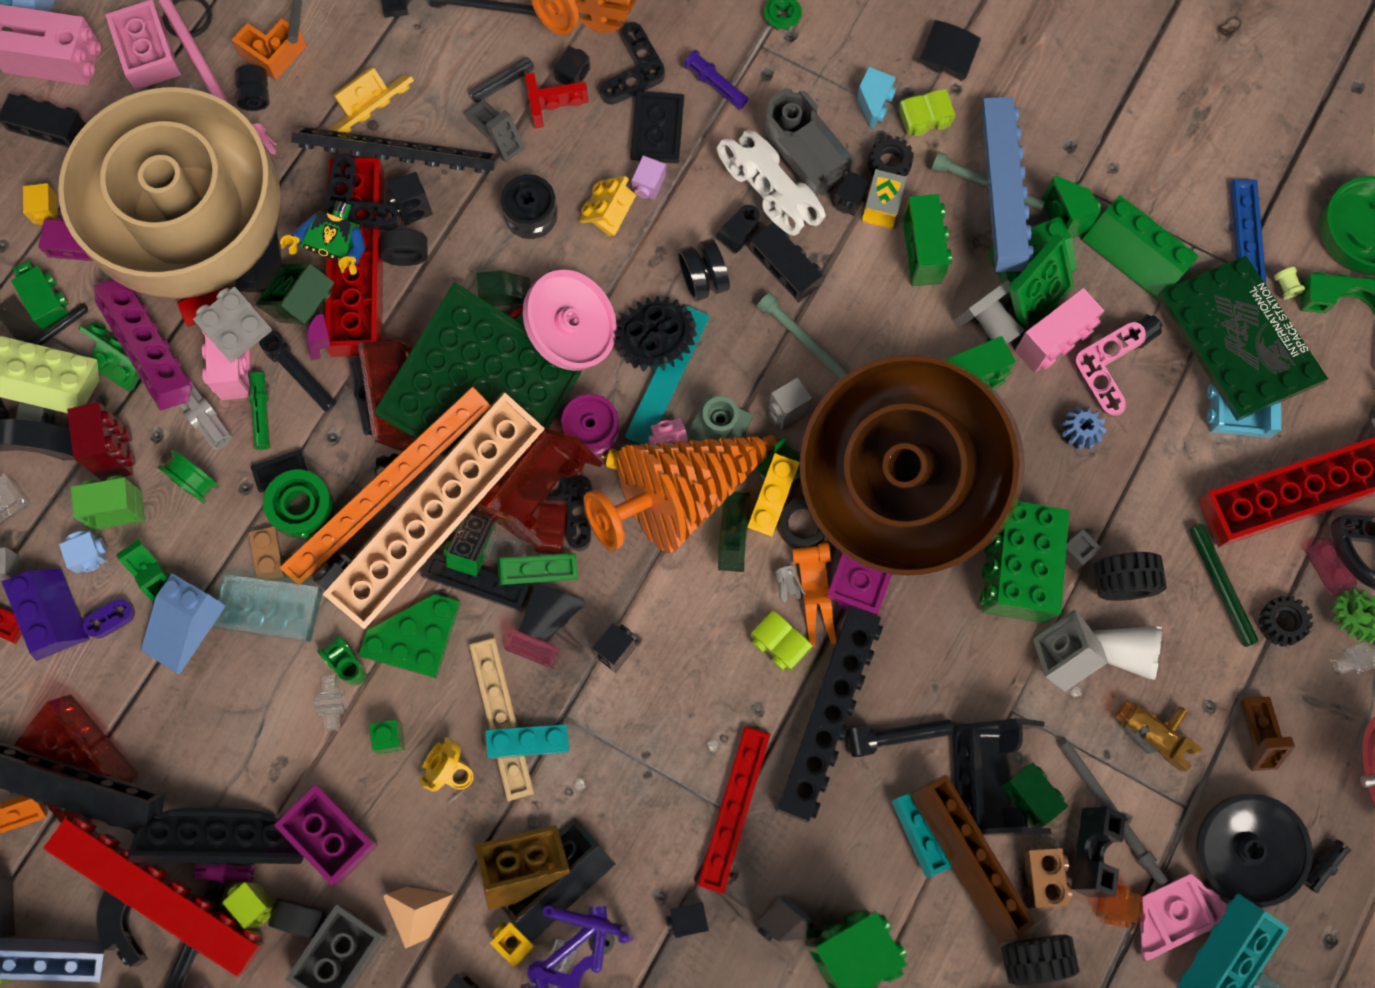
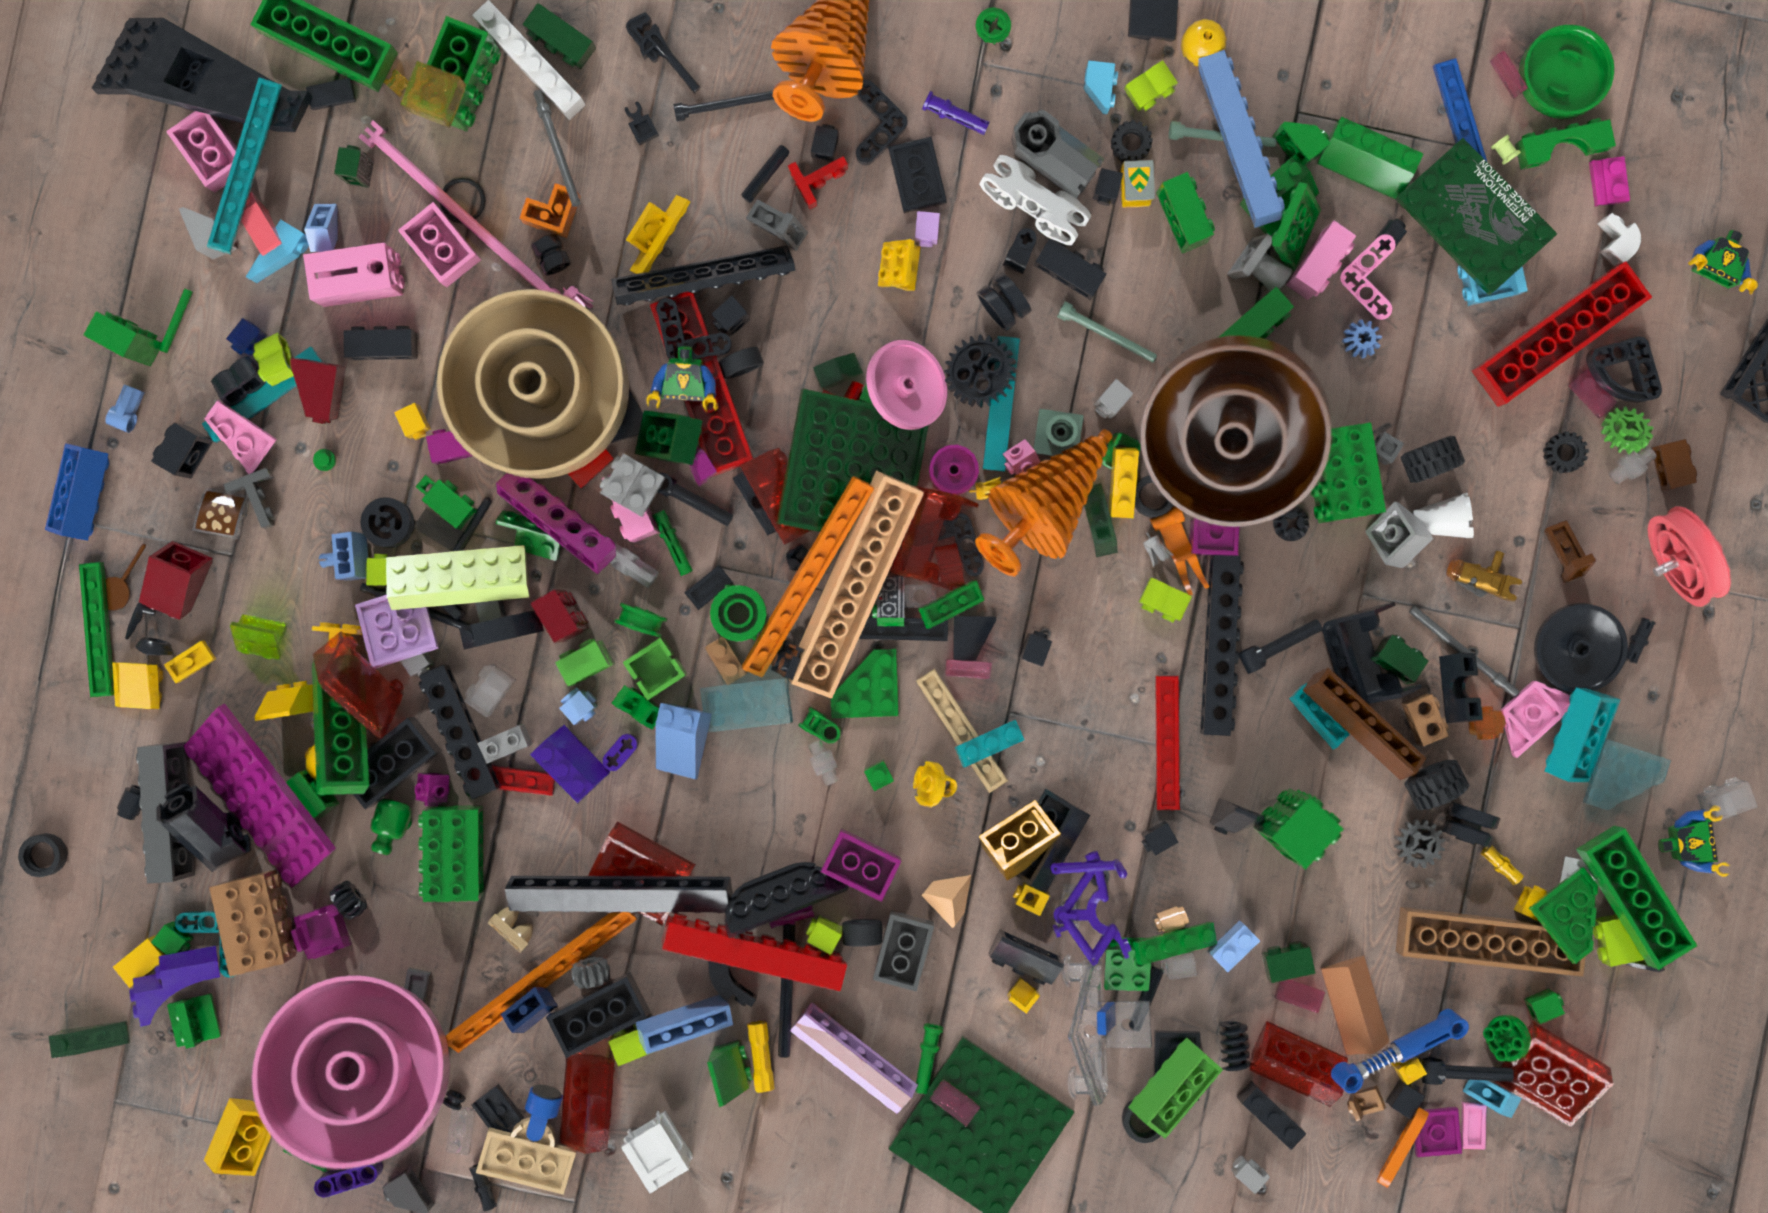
camera: 20 degrees left, 15 degrees up
(186, 534) = (655, 668): none -> bright green piece
(529, 206) = (830, 276): black wheel -> none
(950, 615) = (1280, 525): none -> black gear
(994, 82) = (1202, 39): none -> yellow cylinder
(1223, 585) = (1508, 437): dark green axle -> none
(1310, 210) = (1508, 74): none -> clear pink tile

